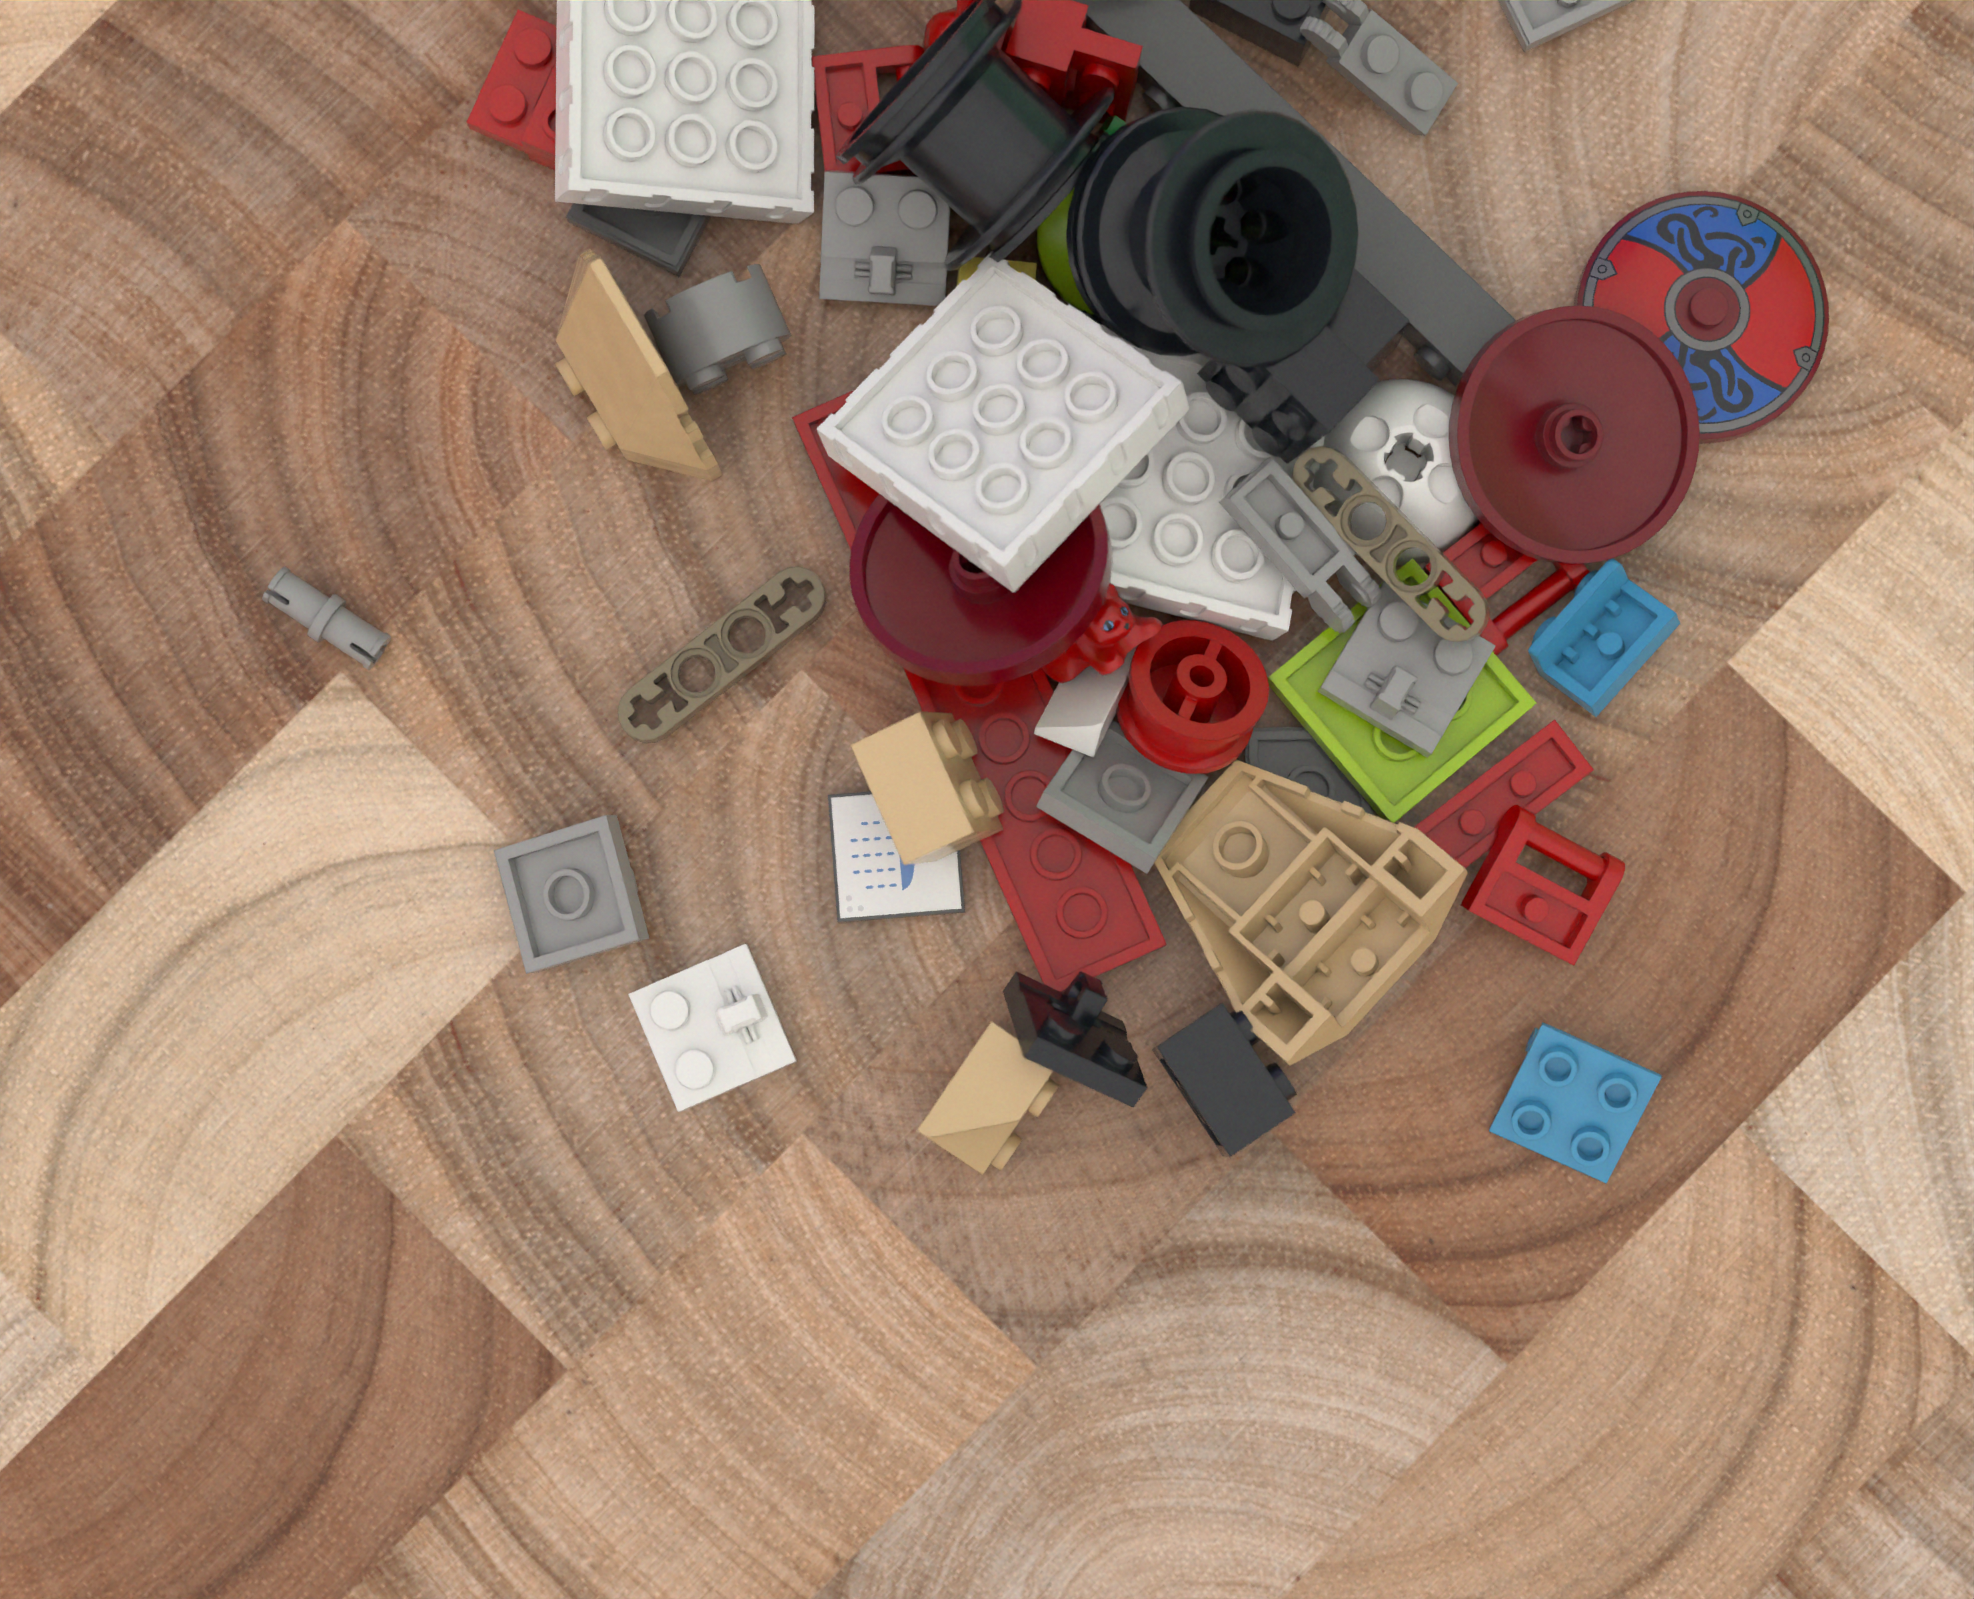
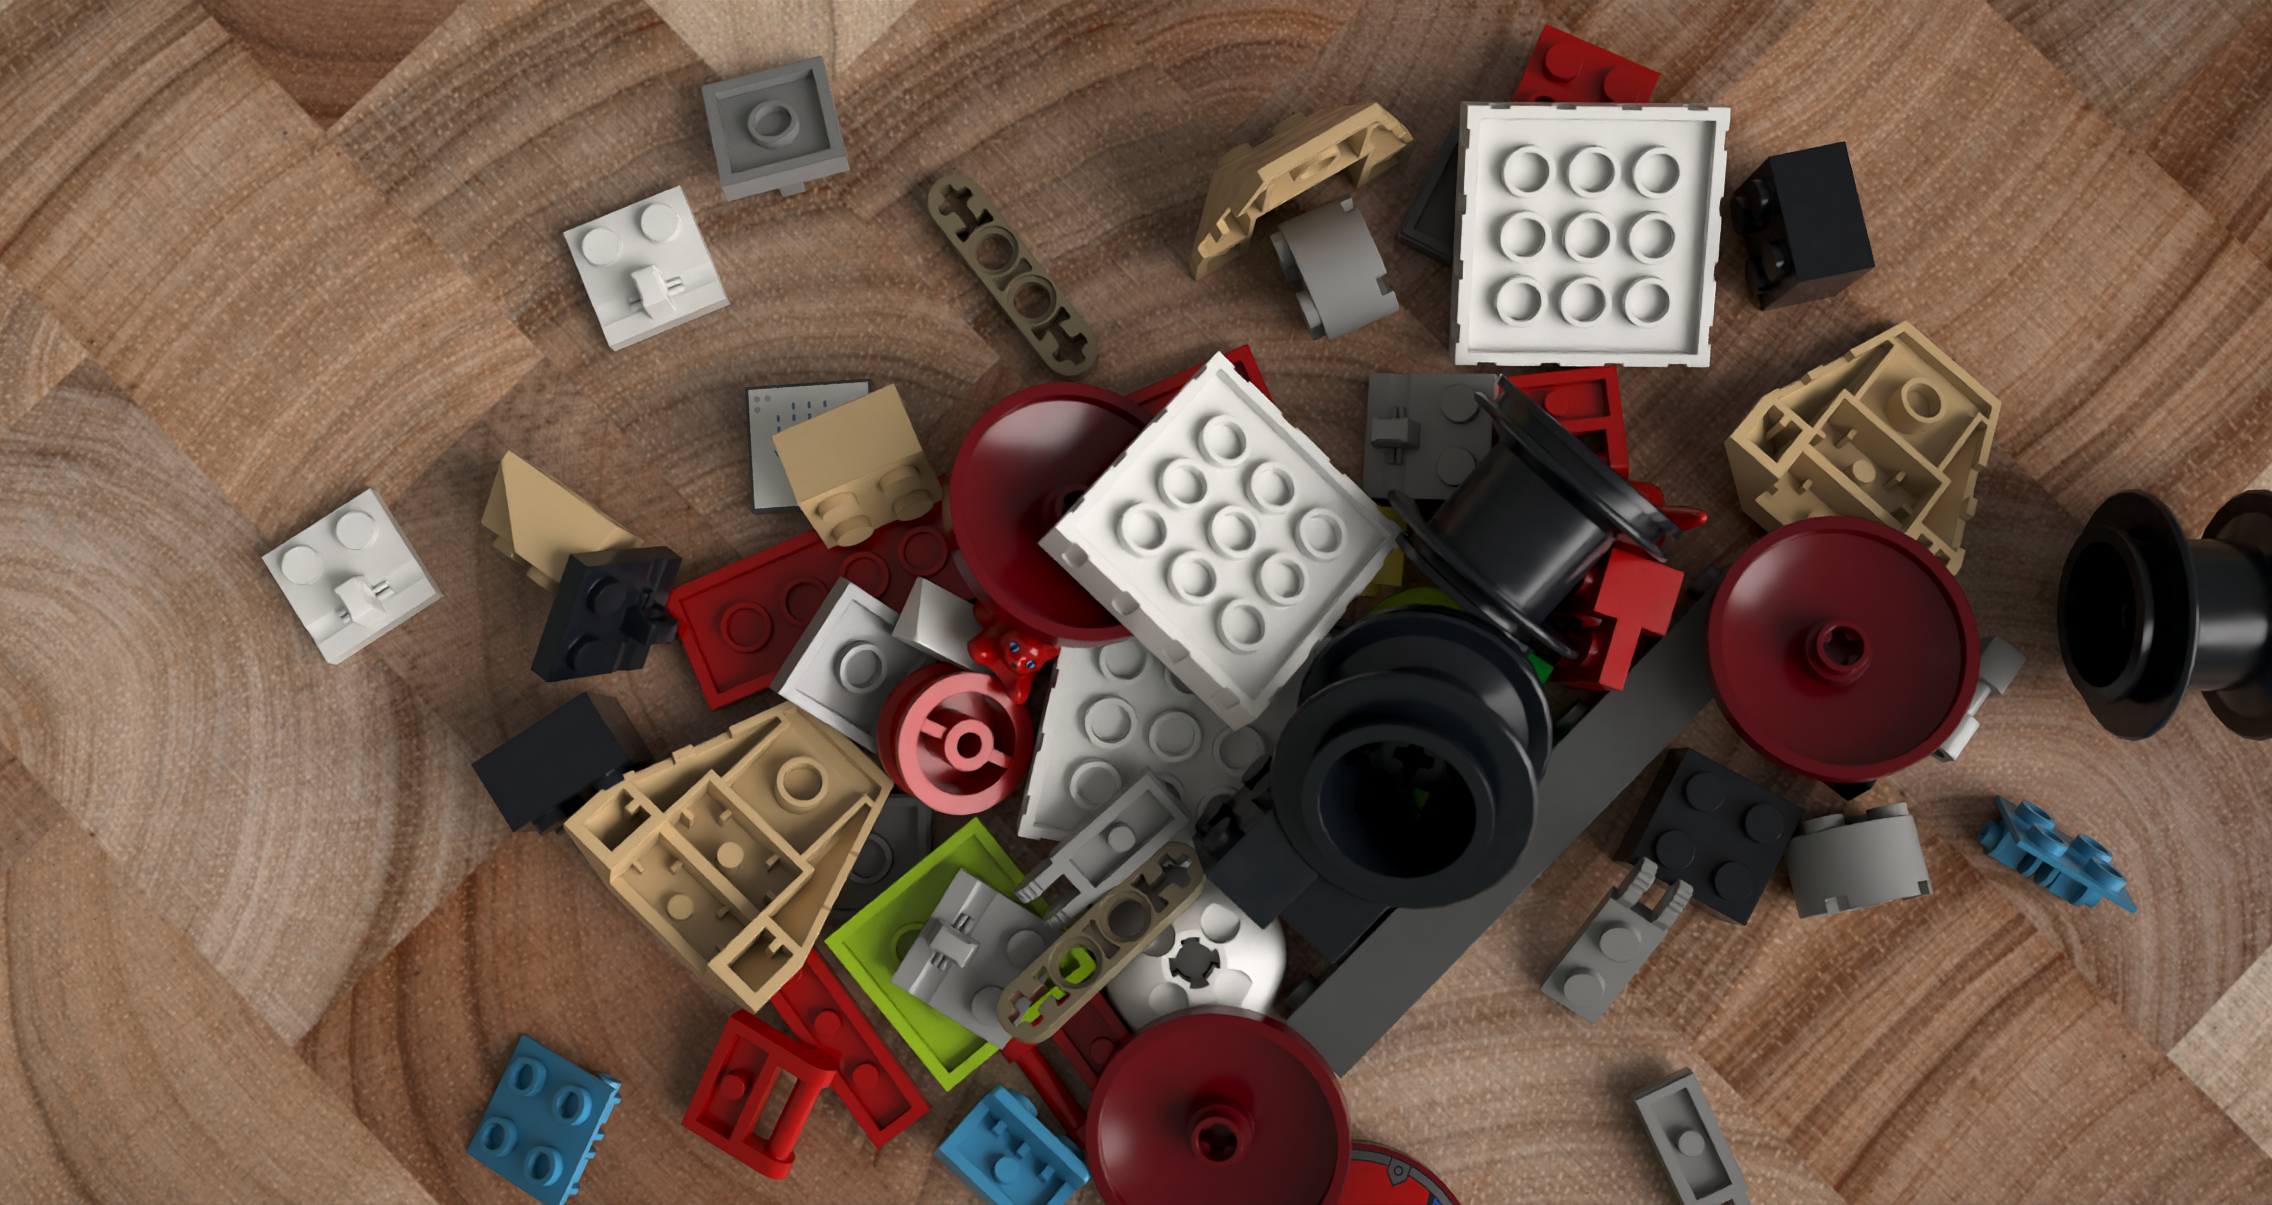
camera: 85 degrees right, 0 degrees up
(1033, 1318) = (352, 576): none -> white hinge

